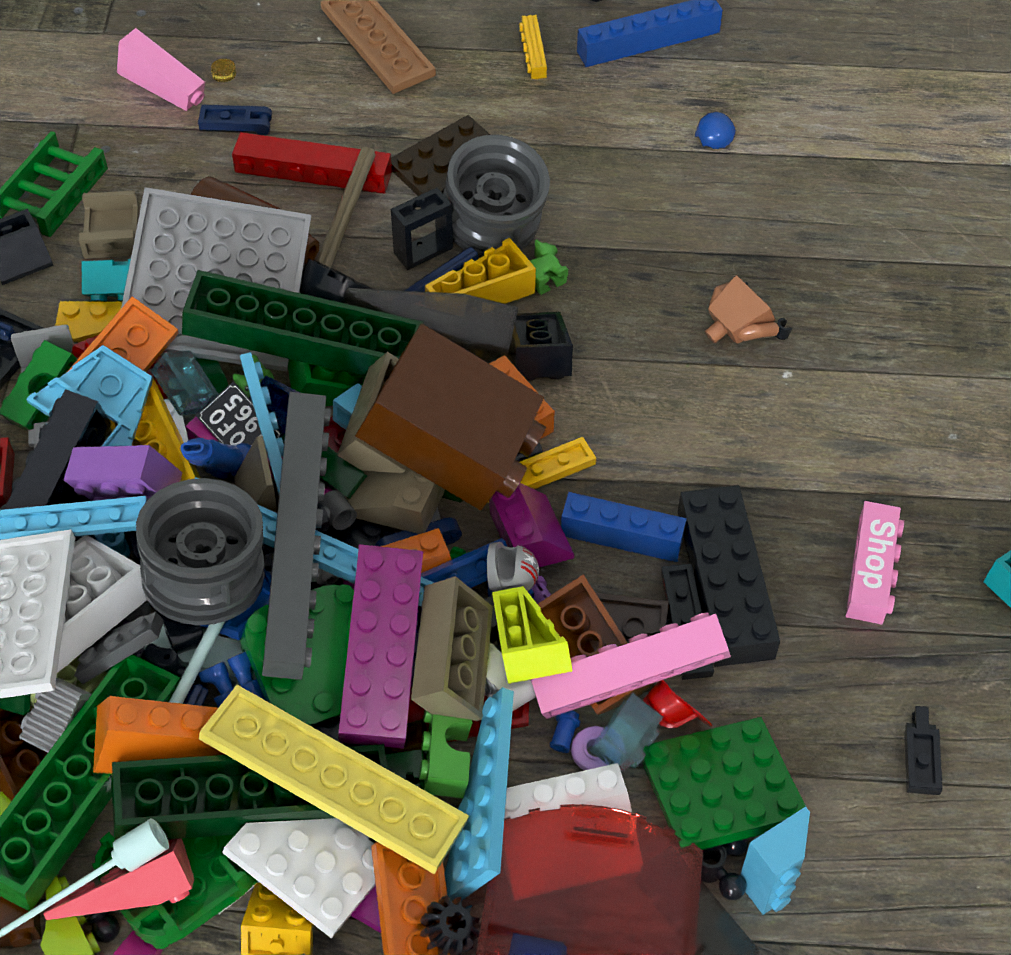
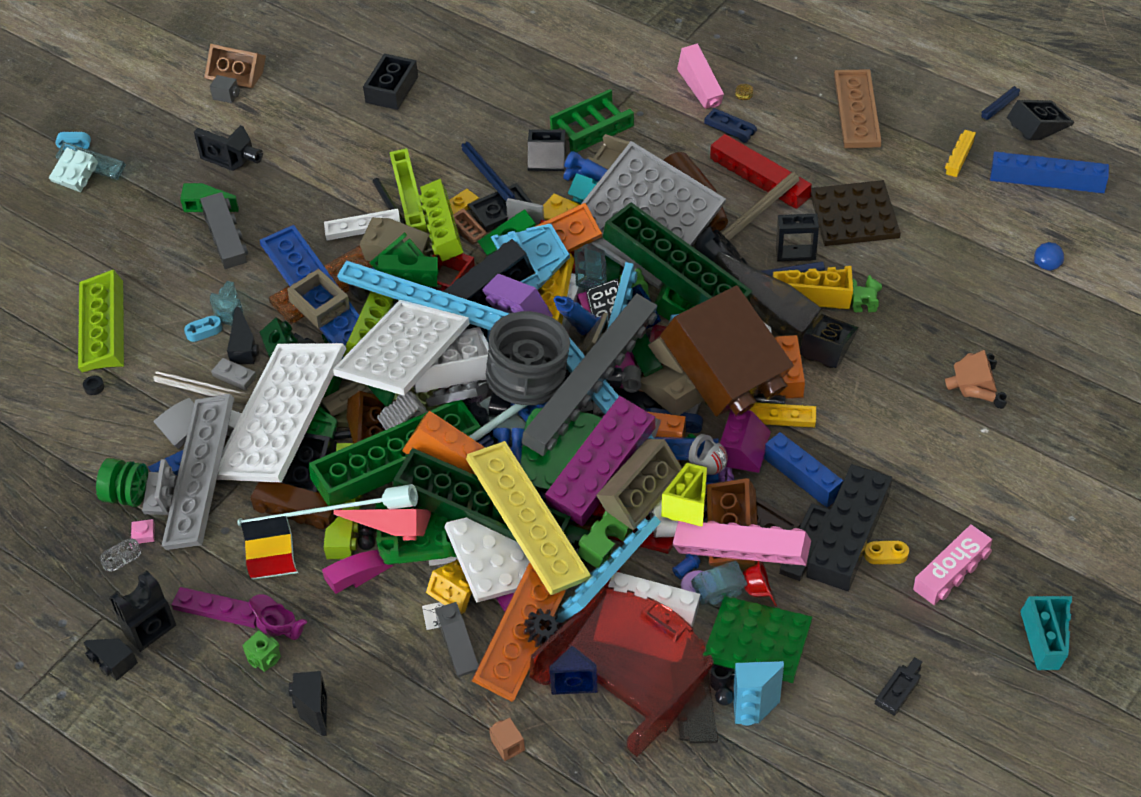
camera: 35 degrees right, 5 degrees down
(77, 249) = (577, 164): none -> blue piece
(492, 207) = (855, 241): dark grey wheel -> none
(789, 584) = (887, 552): none -> yellow plate

